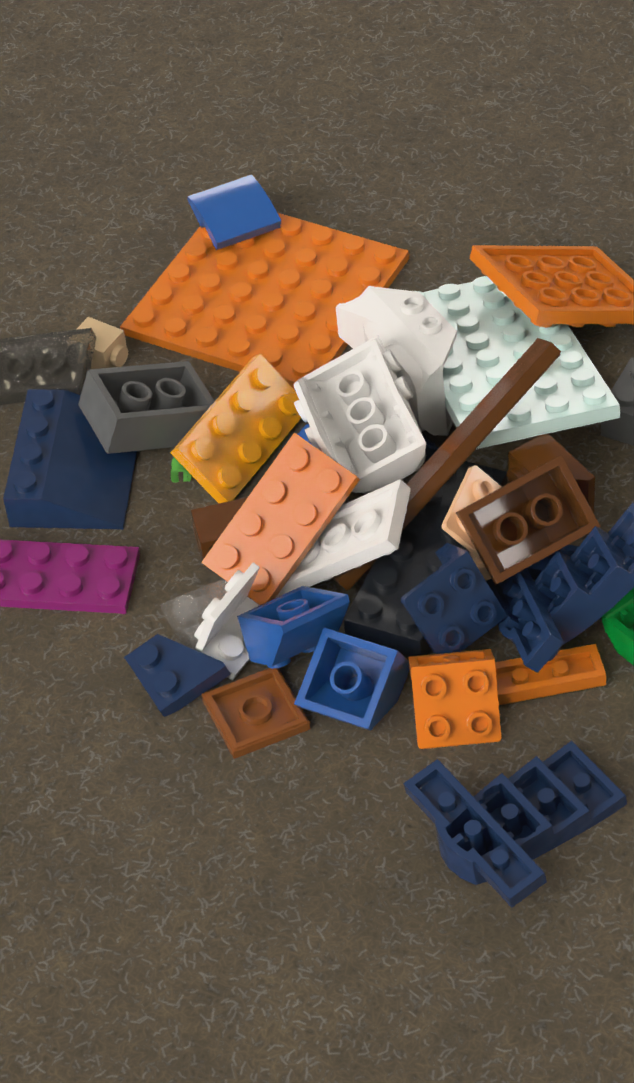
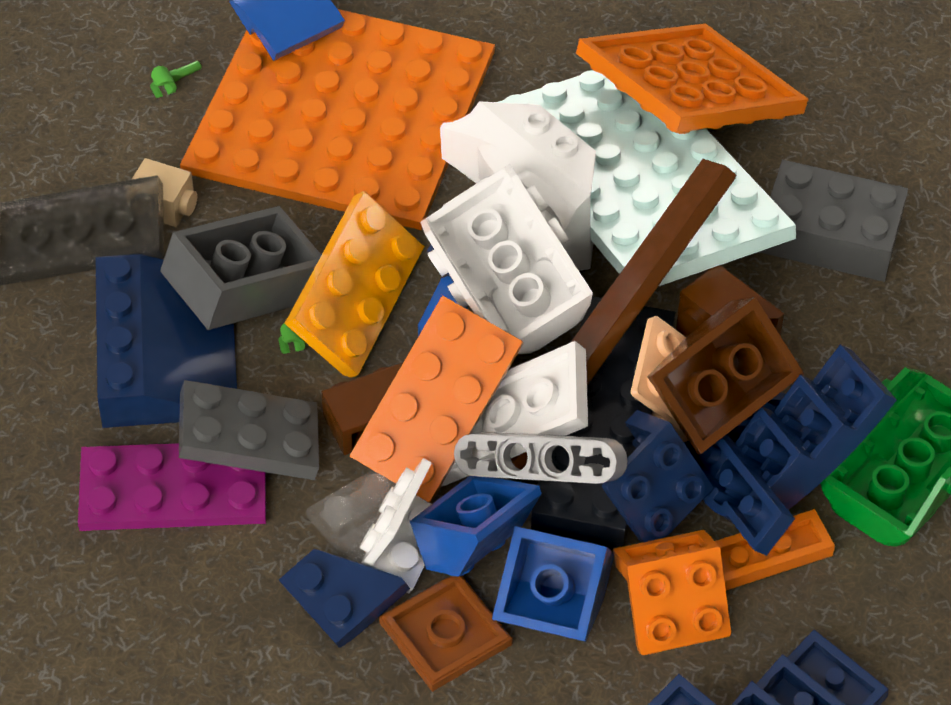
camera: 15 degrees left, 5 degrees up
(121, 255) = (163, 76): none -> bright green hand
(124, 536) = (248, 430): none -> dark grey plate
(353, 572) = (539, 460): none -> light grey beam

